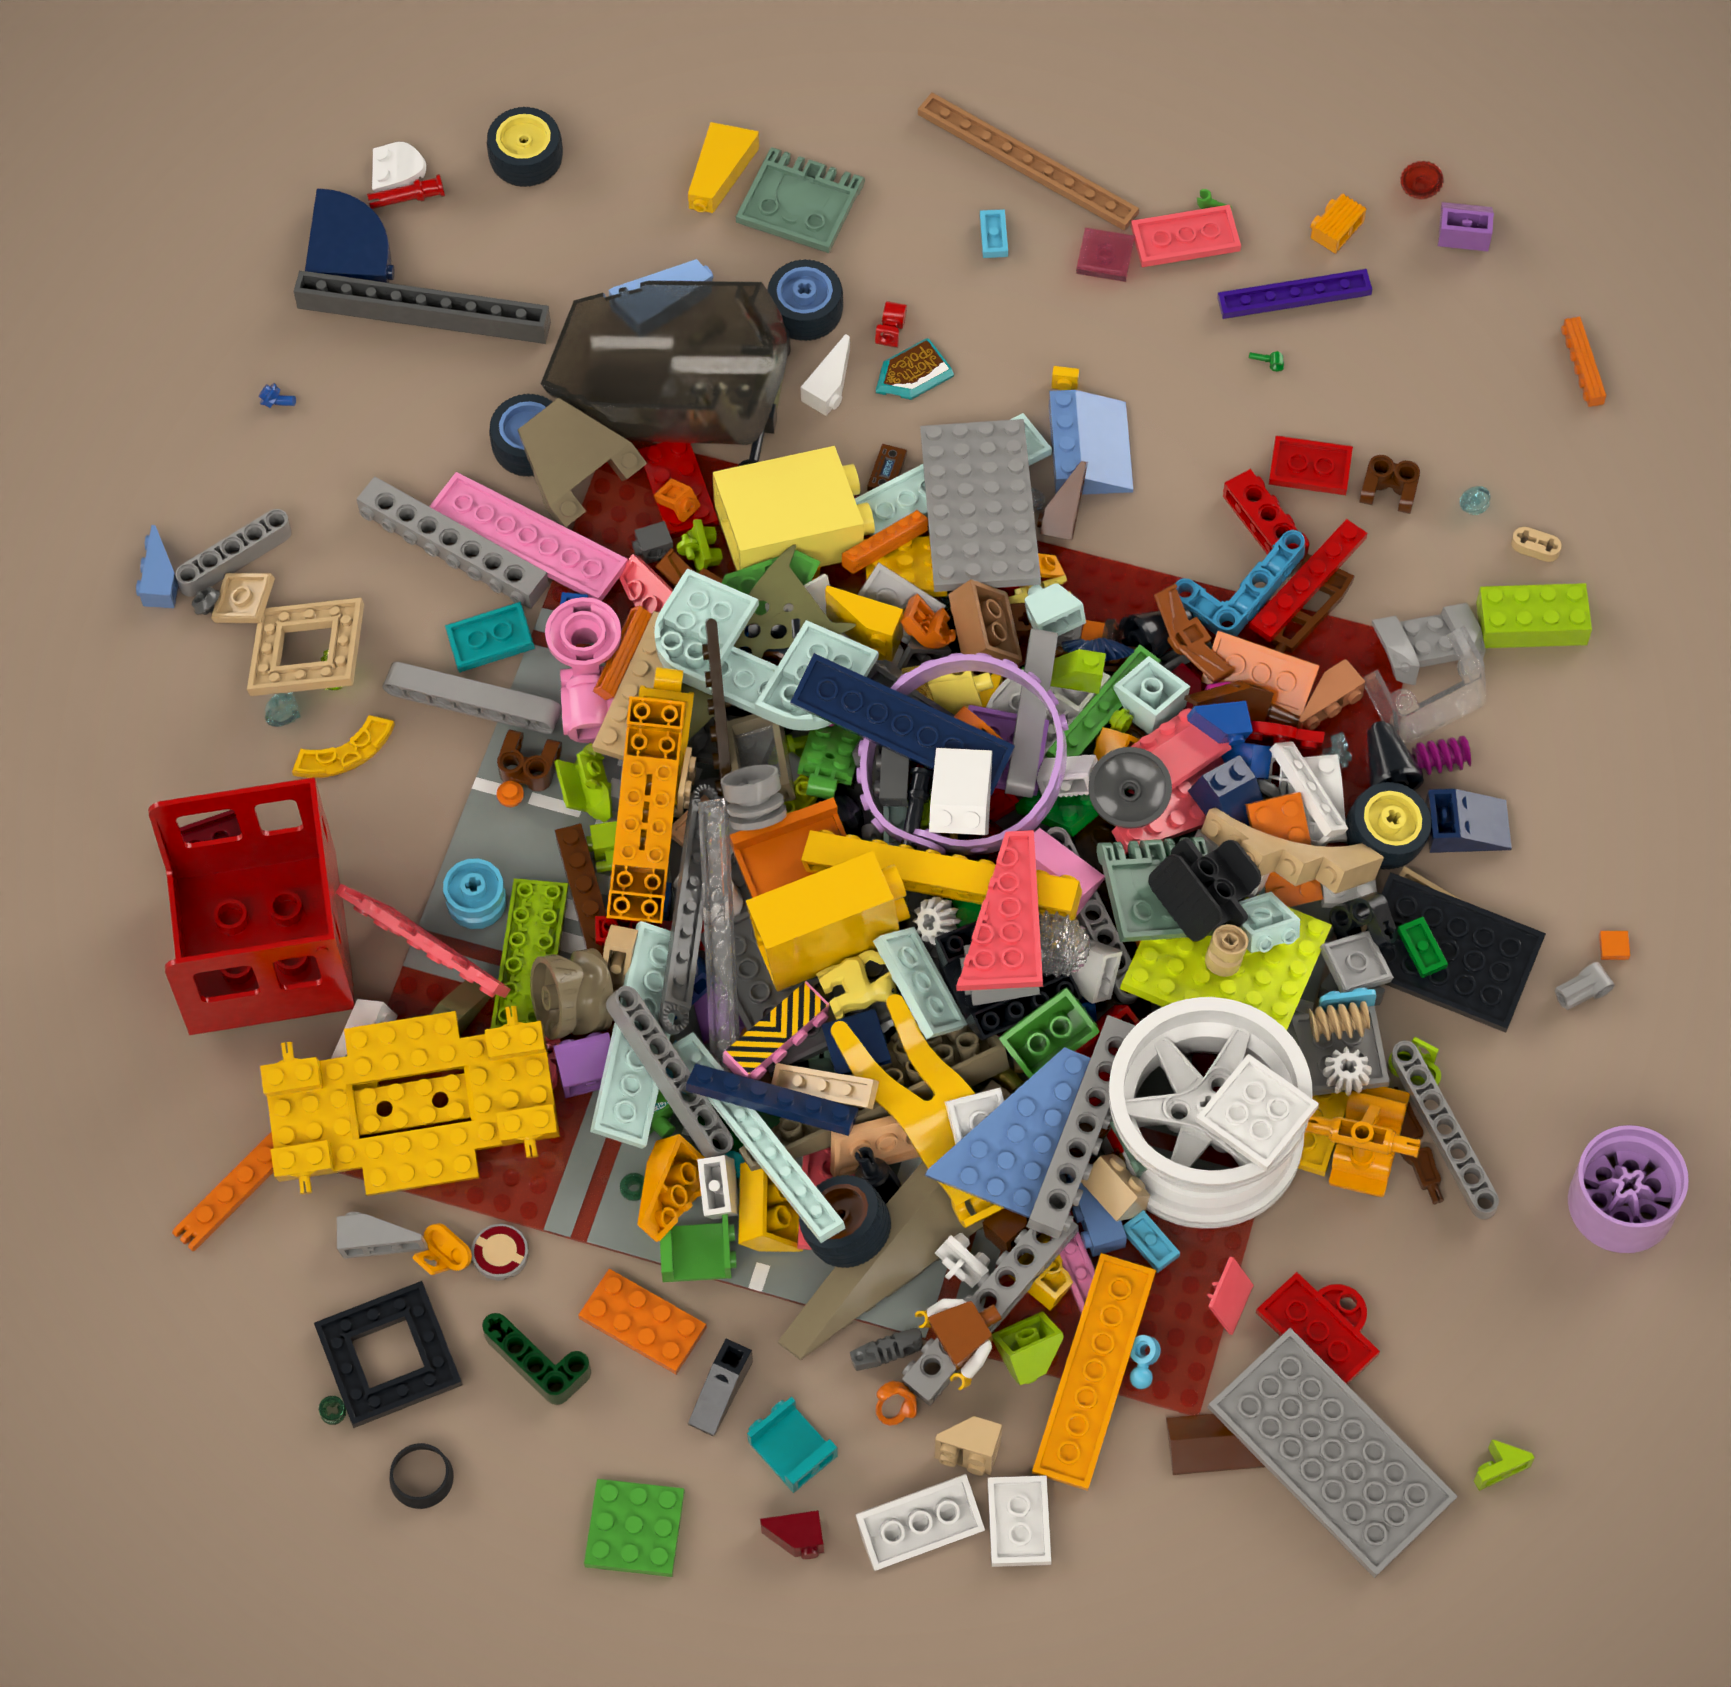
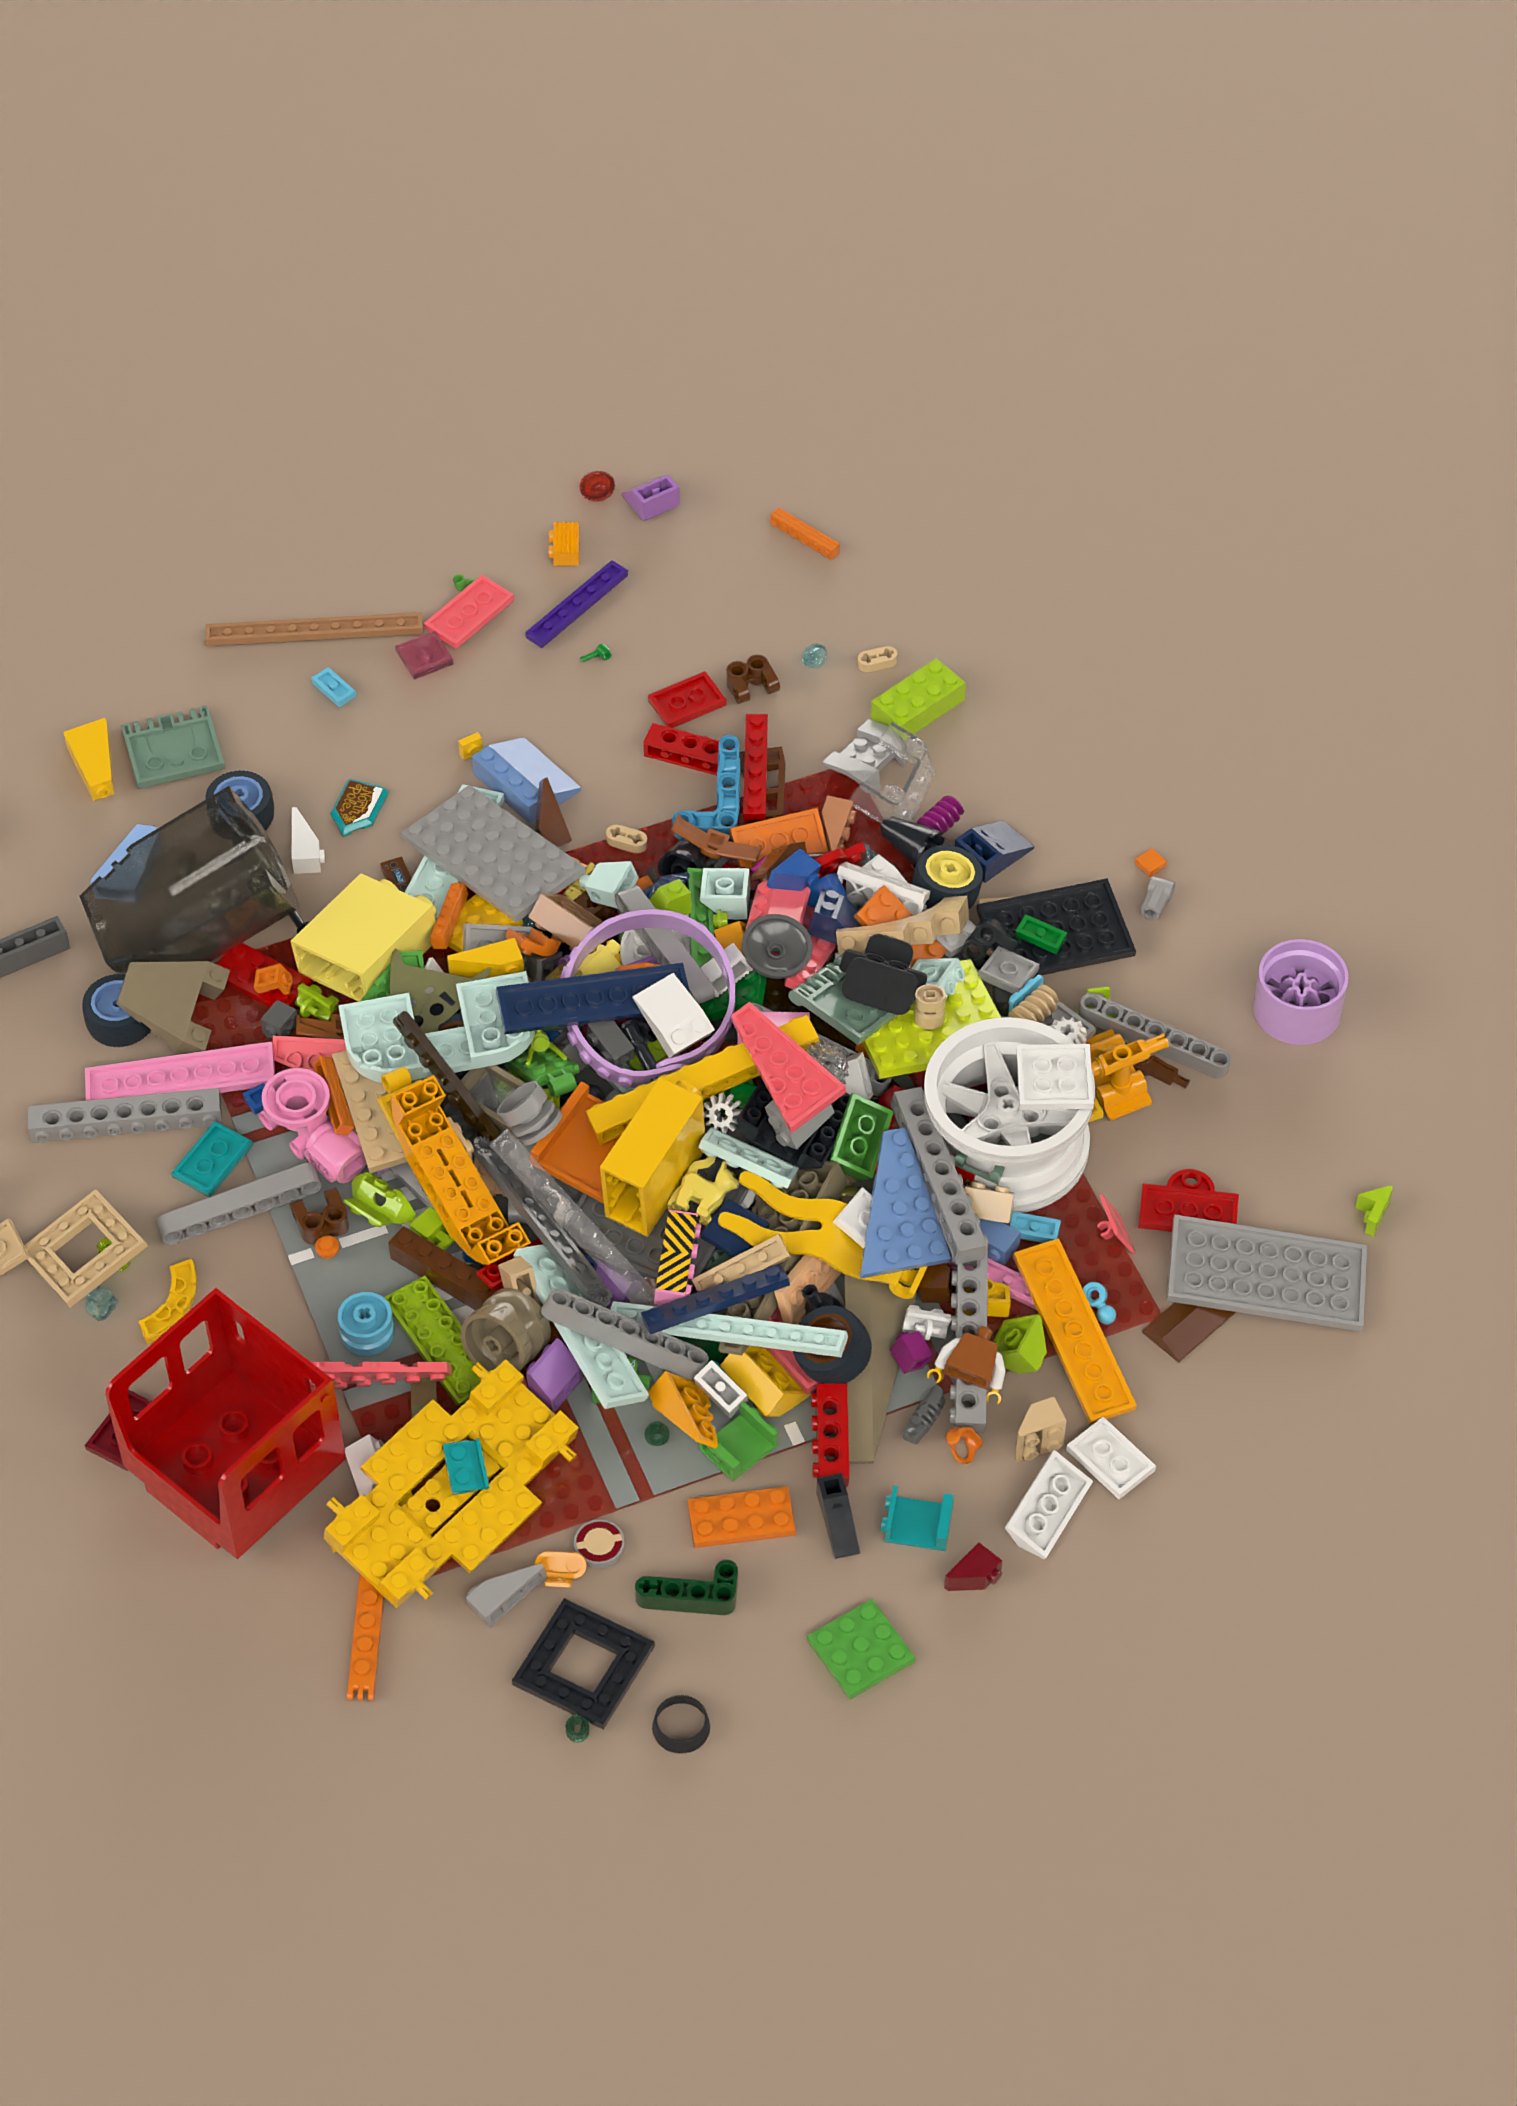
camera: 40 degrees left, 10 degrees down
(431, 1095) = (465, 1466): none -> teal plate
(763, 1344) = (835, 1398): none -> red brick
(841, 733) = (541, 1043): none -> lime plant
(893, 318) = (313, 782): red leg -> none
(922, 1279) = (911, 1351): none -> magenta brick
(1128, 570) = (626, 839): none -> tan beam

